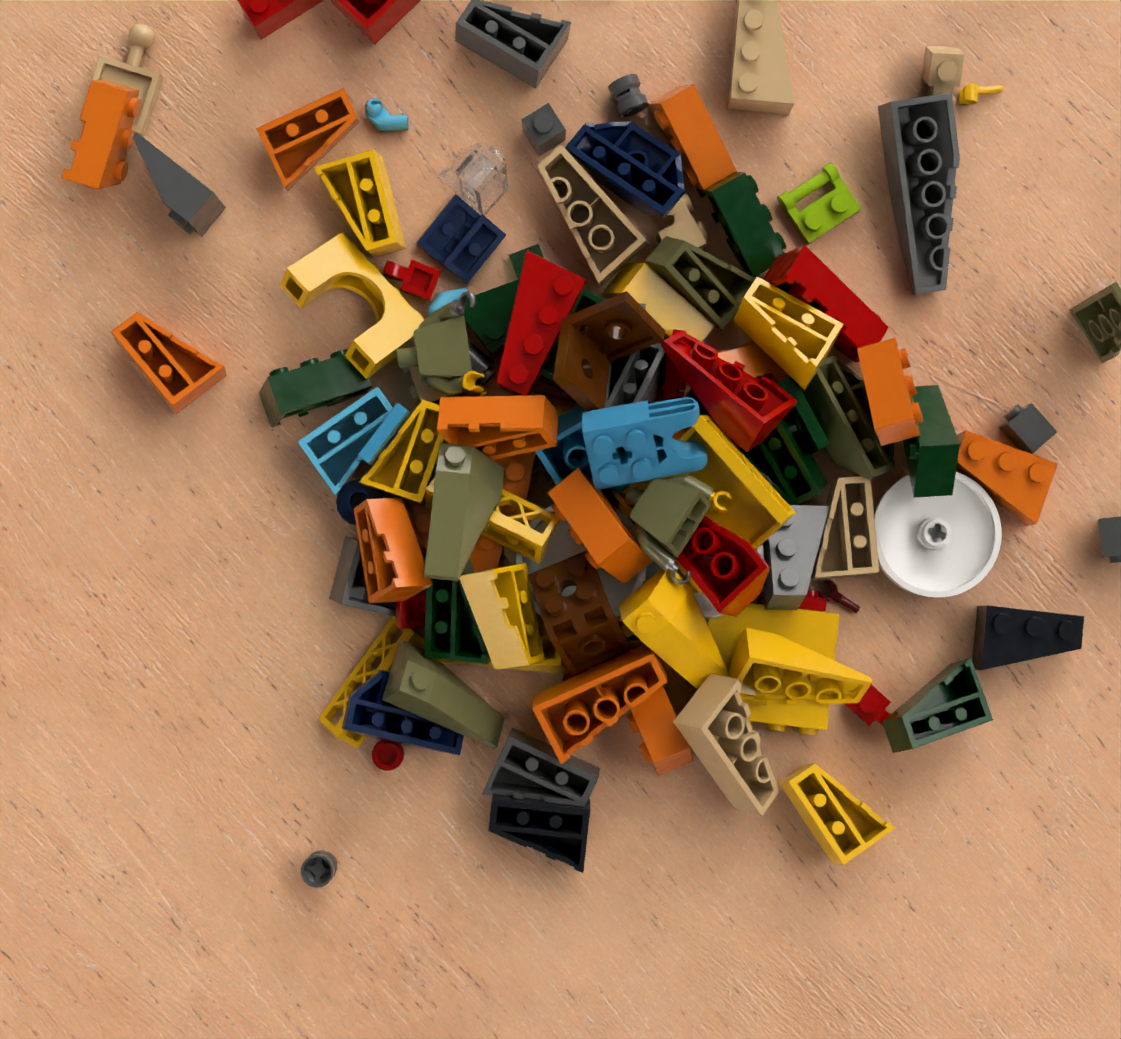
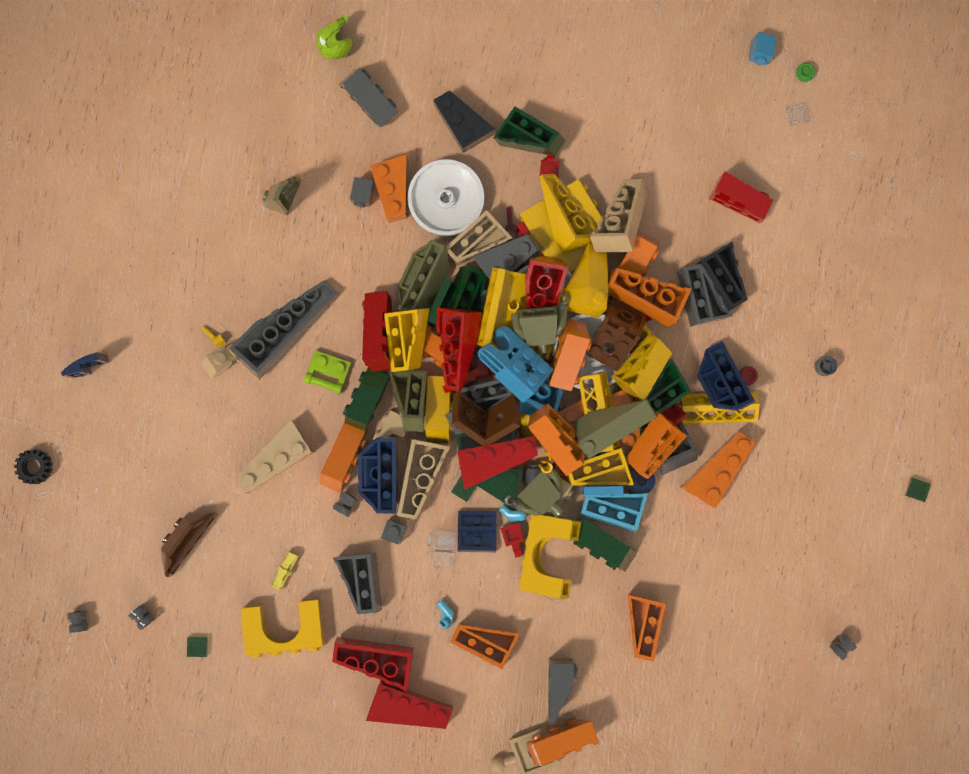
camera: 120 degrees left, 0 degrees up
(61, 862) = (918, 489): none -> clear green tile
(292, 616) = (718, 472): none -> orange wedge
(366, 199) = (494, 590): yellow wedge -> none
(440, 696) = (702, 370): olive wedge -> none
(632, 933) = (741, 197): none -> red wedge
(833, 814) = (614, 146): yellow wedge -> none
(890, 391) = (398, 268): orange wedge -> none
(935, 452) = (405, 234): dark green wedge -> none

